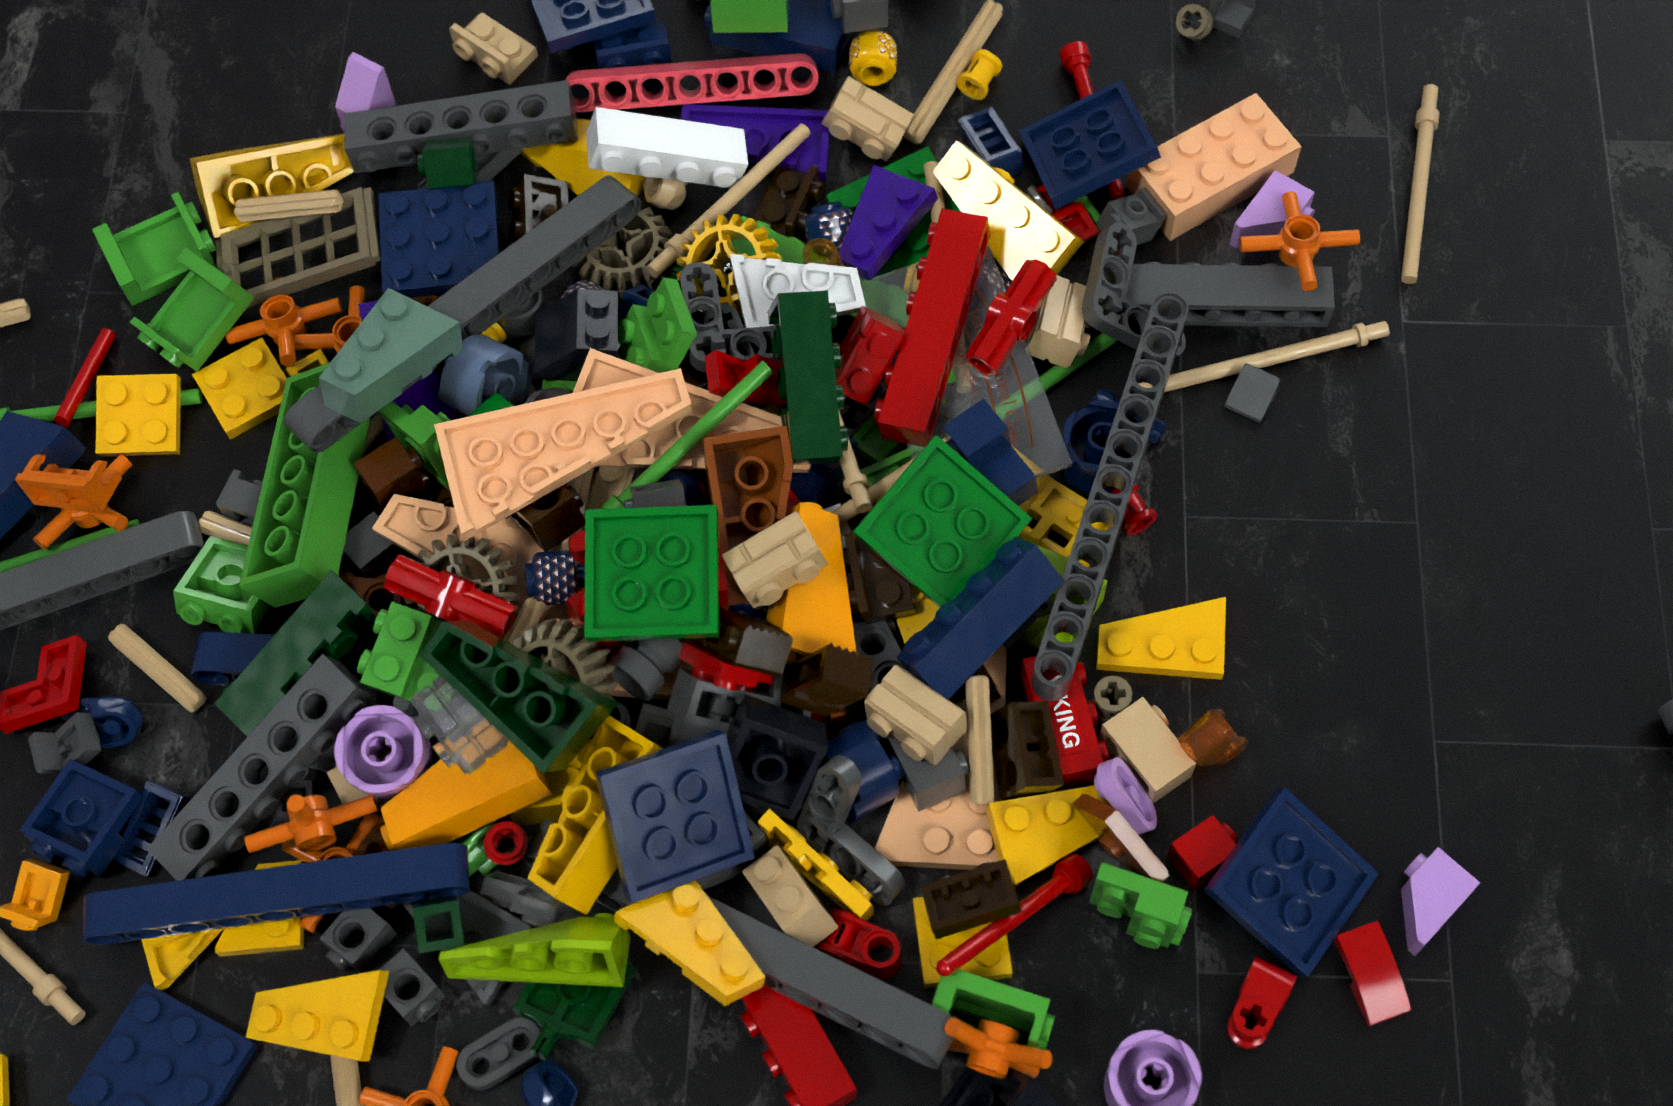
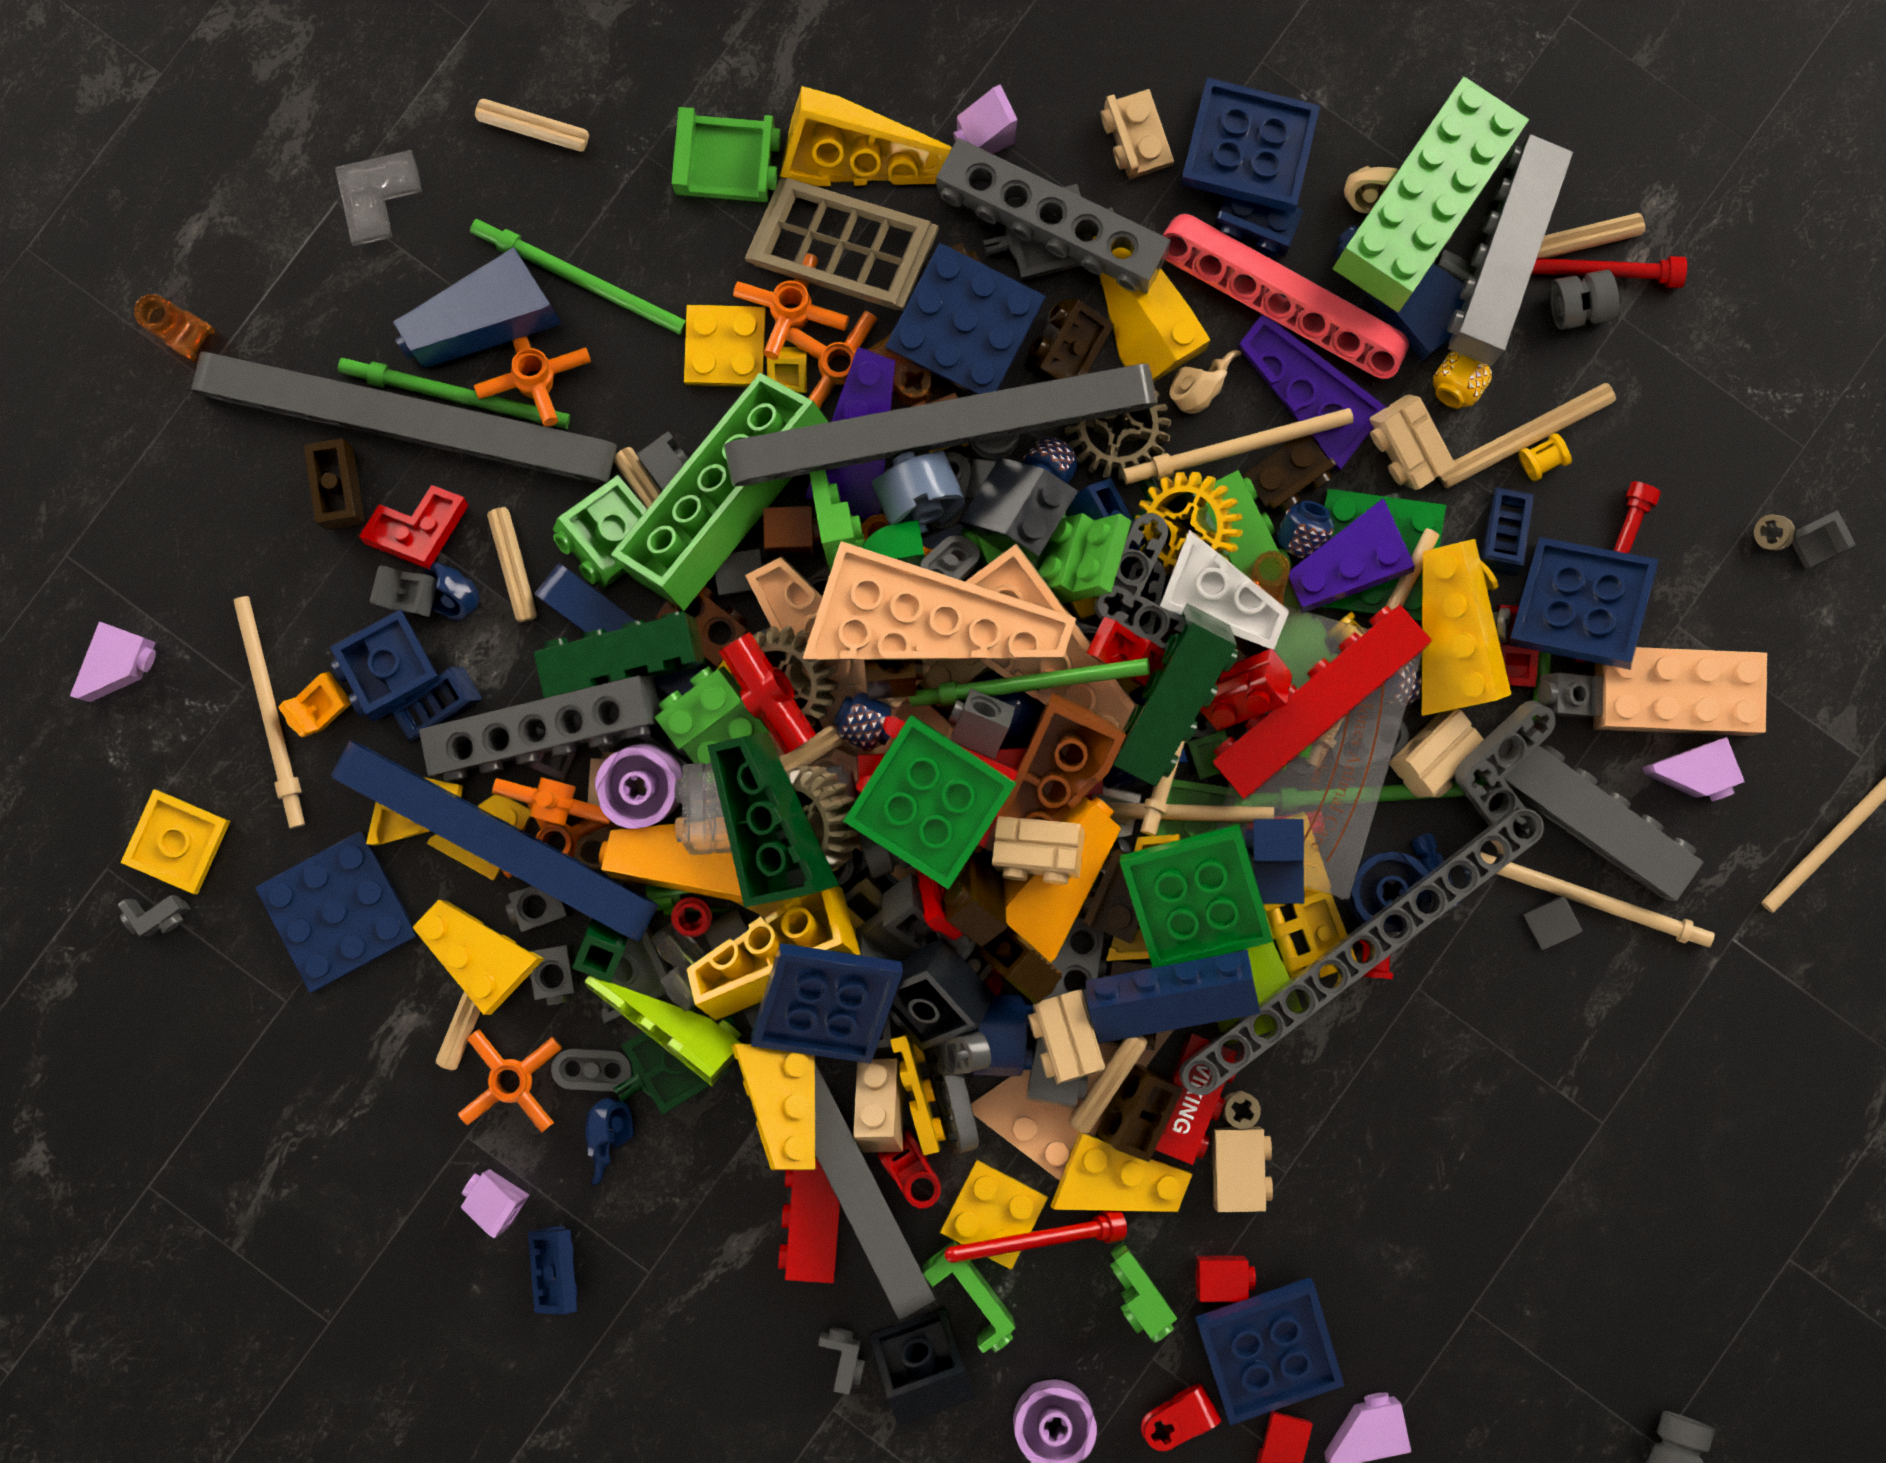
camera: 30 degrees right, 20 degrees up
(67, 486) = (526, 362): orange hinge -> none
(84, 377) = (597, 248): red bar -> none
(138, 415) = (621, 317): yellow plate -> none
(195, 314) = (718, 252): bright green panel -> none
(288, 205) = (858, 197): tan axle -> none
(386, 354) = (842, 447): sand green wedge -> none
(448, 163) = (1016, 254): dark green brick -> none
(666, 148) = (1211, 369): white brick -> none
(970, 898) = (1012, 1207): dark brown bracket -> none
(994, 1049) = (953, 1328): orange bar -> none
(1011, 317) = (1389, 740): red piece -> none
(1120, 838) = (1159, 1235): dark orange plate -> none
(1124, 793) = (1193, 1198): lavender plate -> none
(1167, 642) = (1323, 1089): yellow wing -> none
(1212, 740) = (1292, 1198): clear orange piece -> none
(1299, 241) = (1704, 820): orange bar -> none

